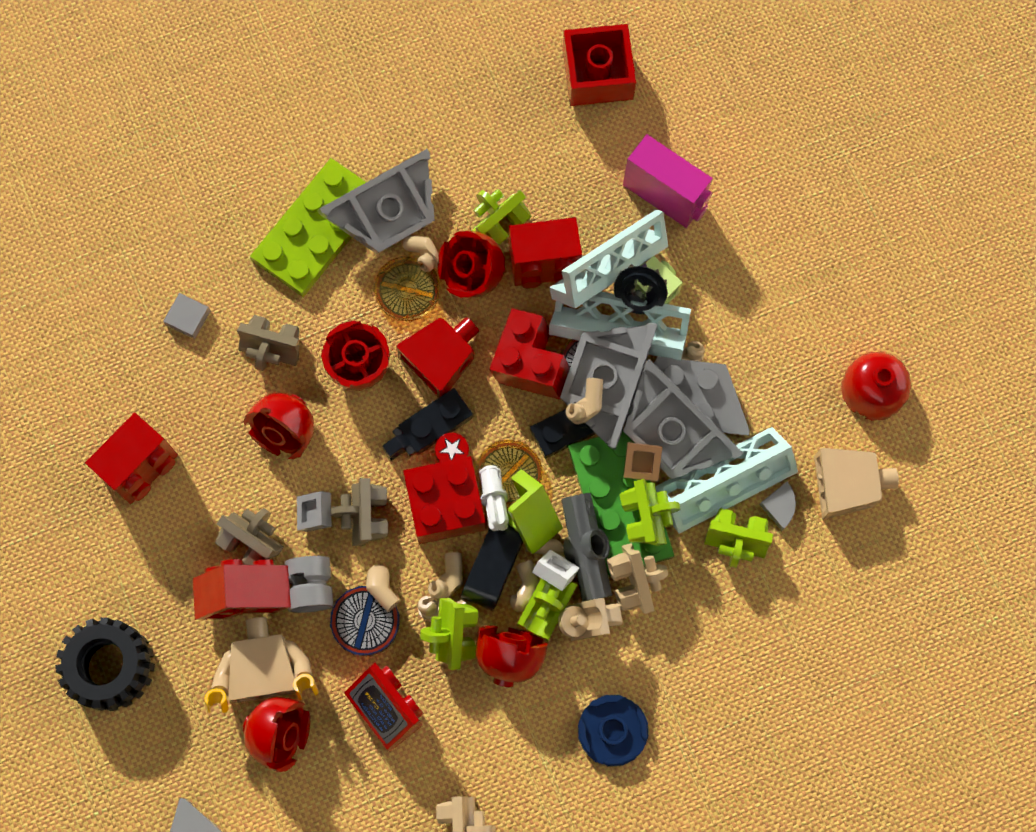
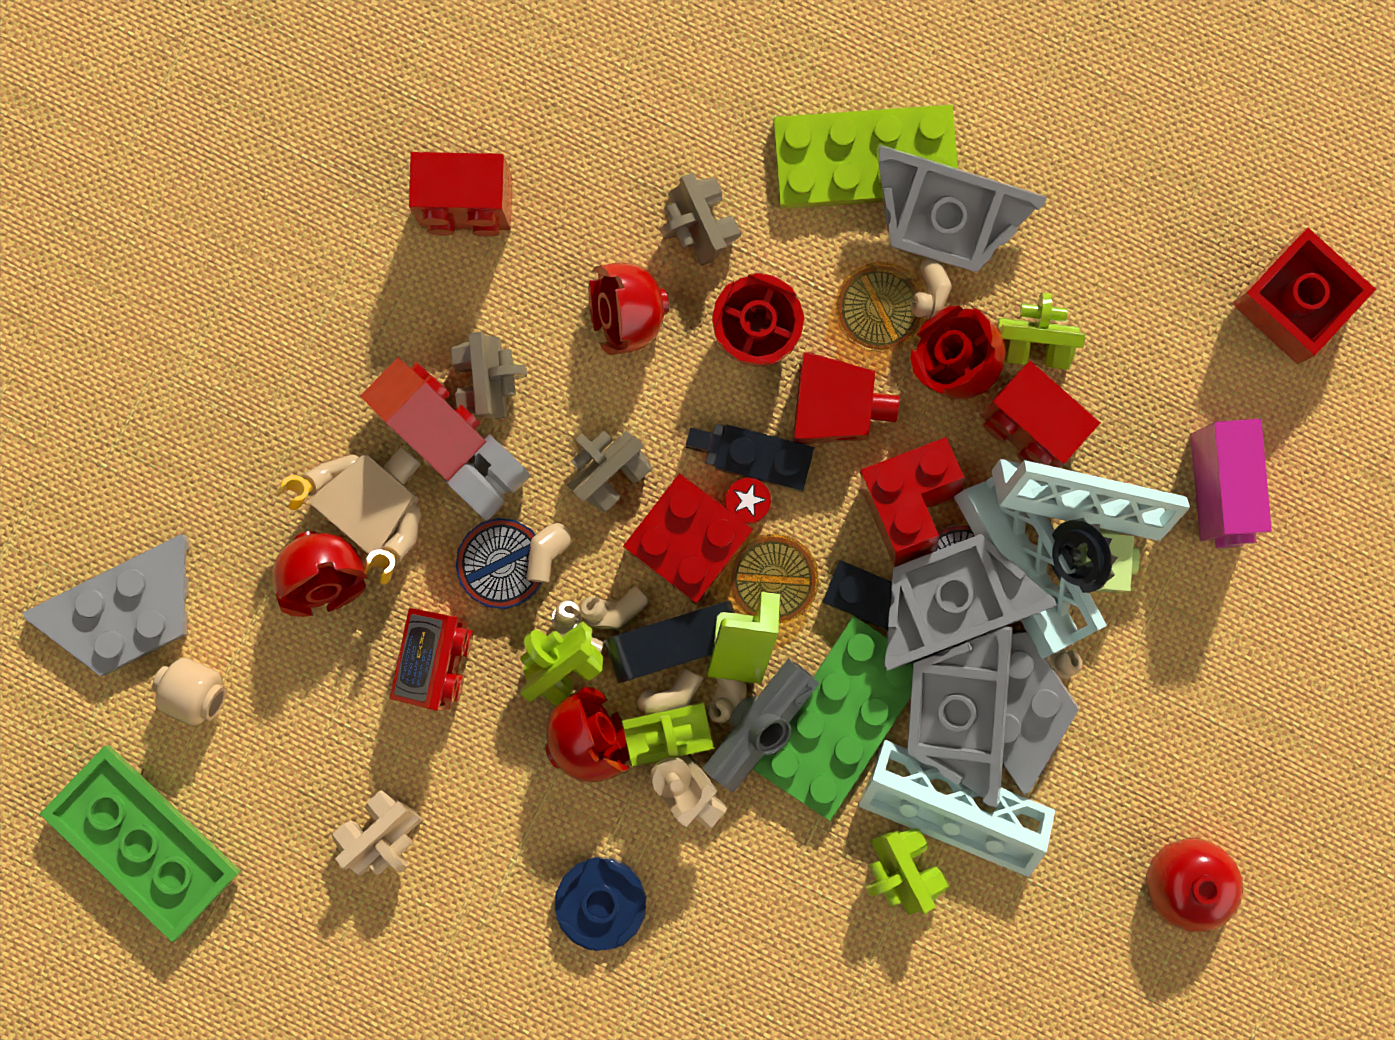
camera: 50 degrees right, 10 degrees up
(81, 648) = (212, 329): black tyre -> none
(186, 316) = (657, 109): light grey tile -> none
(314, 511) = (566, 417): light grey tile -> none
(494, 497) = (730, 589): white axle -> none
(555, 570) = (708, 715): white tile -> none
(589, 405) = (906, 606): tan arm -> none
(638, 593) = (777, 786): tan hips -> none
(642, 461) = (898, 709): medium nougat tile -> none
(654, 513) = (853, 765): lime hips -> none
(780, 505) = (977, 887): light grey tile -> none
(850, 481) = (1064, 941): tan torso -> none

